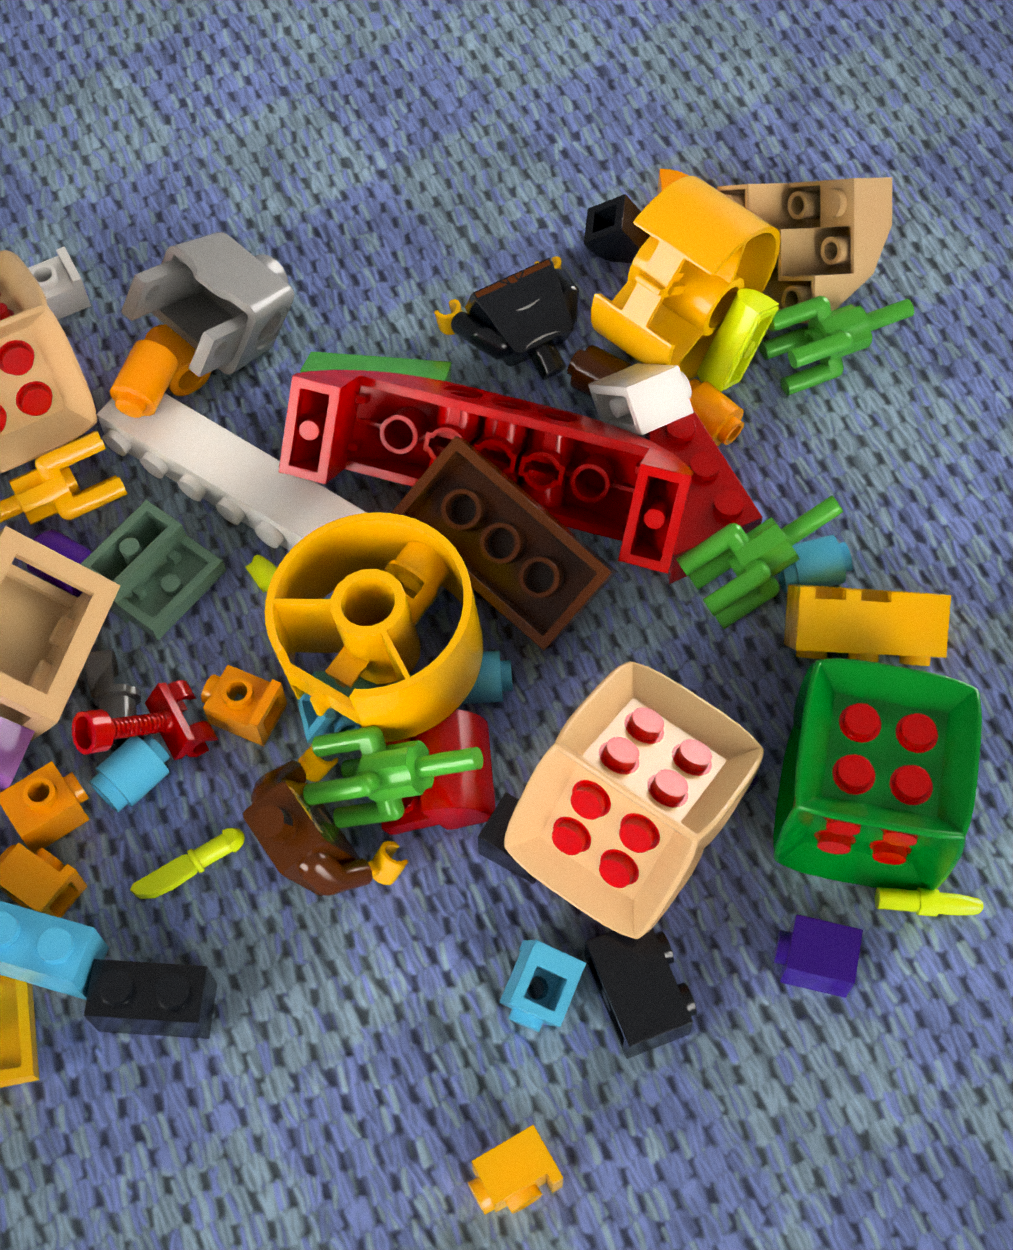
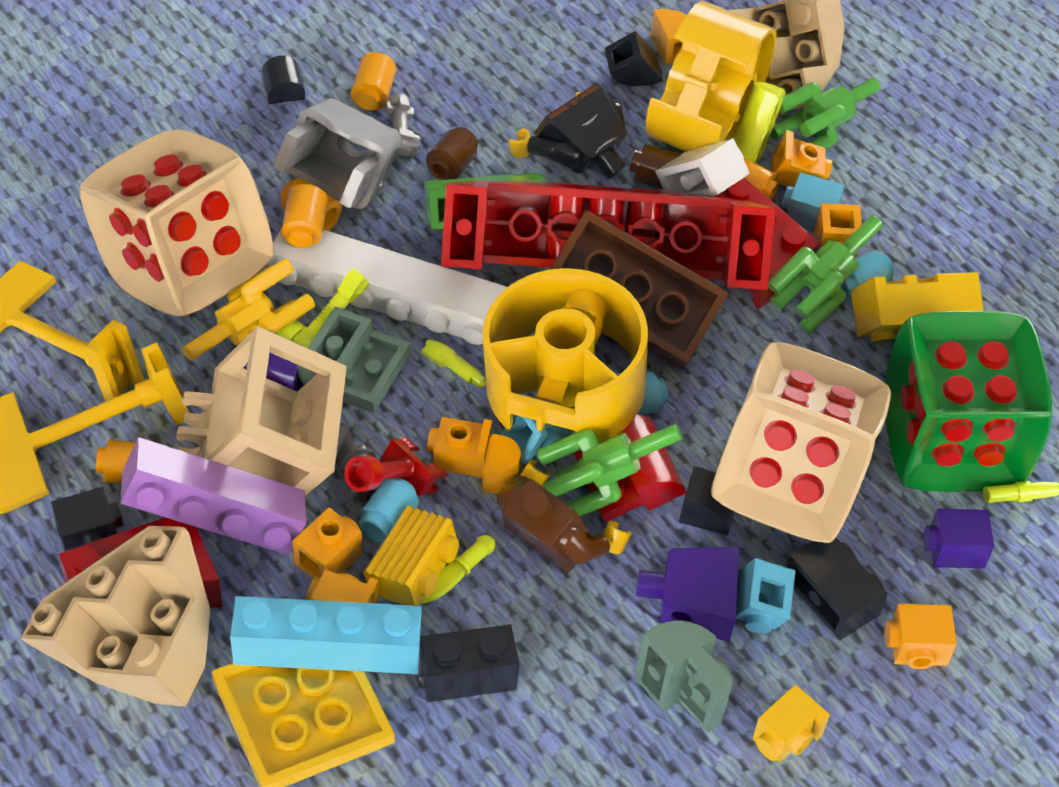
camera: 20 degrees left, 10 degrees down
(103, 521) = (351, 287): none -> neon yellow brick
(133, 843) = (413, 556): none -> yellow brick
(202, 194) = (282, 80): none -> black brick
(279, 737) = (500, 463): none -> light orange brick
(301, 212) = (373, 81): none -> light orange brick
(308, 290) = (400, 111): none -> light grey bar
(362, 319) = (452, 153): none -> reddish brown brick
(401, 1066) = (680, 667): none -> sand green brick
(461, 956) = (696, 588): none -> dark purple torso
(725, 1083) = (921, 635): none -> light orange brick
(779, 400) = (798, 156): none -> light orange brick
(779, 456) = (806, 197): none -> medium azure brick
(794, 494) = (837, 223): none -> light orange brick

